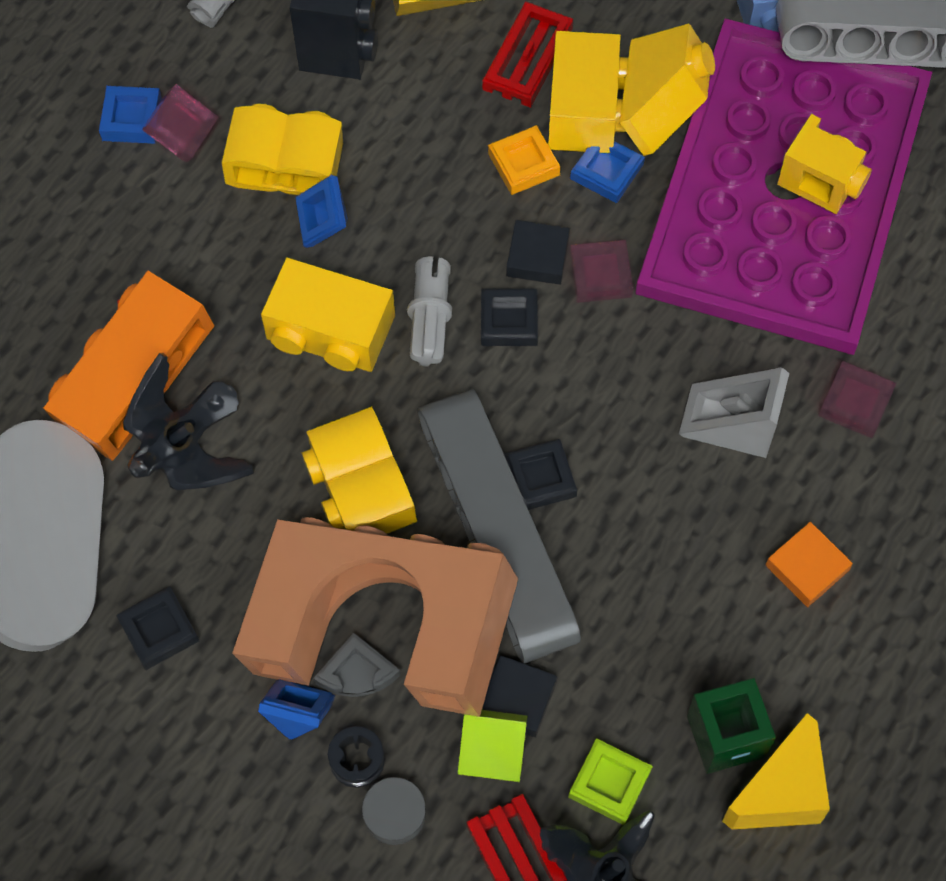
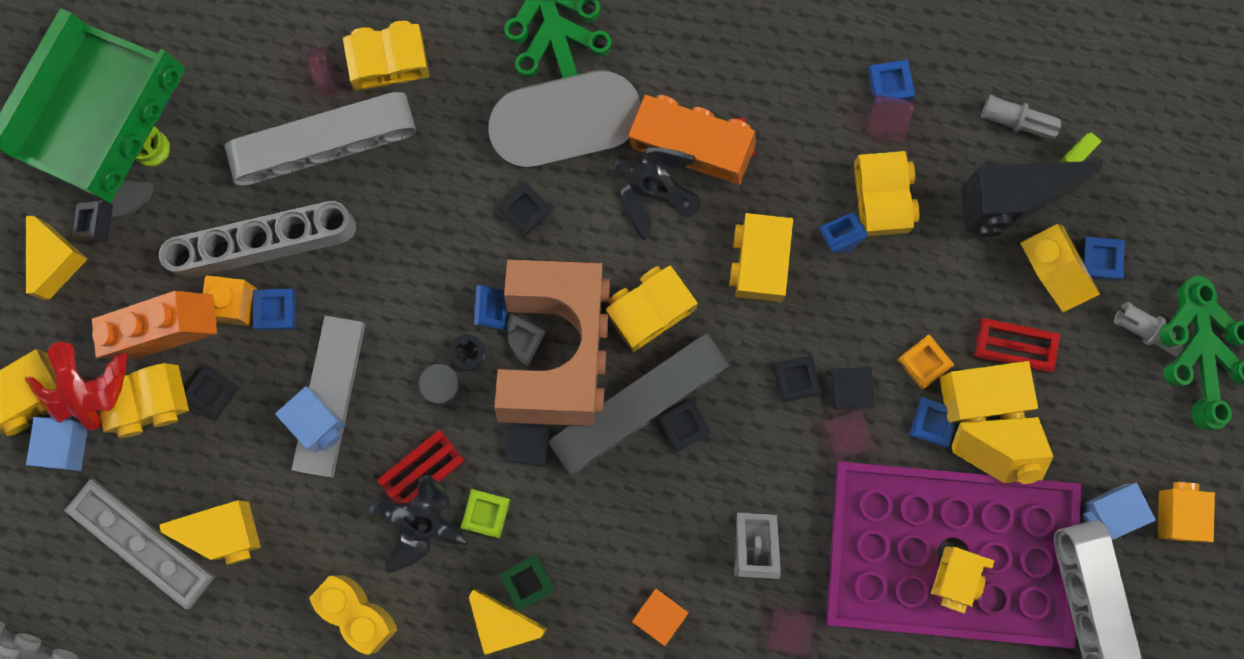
camera: 80 degrees right, 15 degrees up
(429, 311) = (784, 324): light grey axle -> none
(493, 745) = (489, 436): lime tile -> none

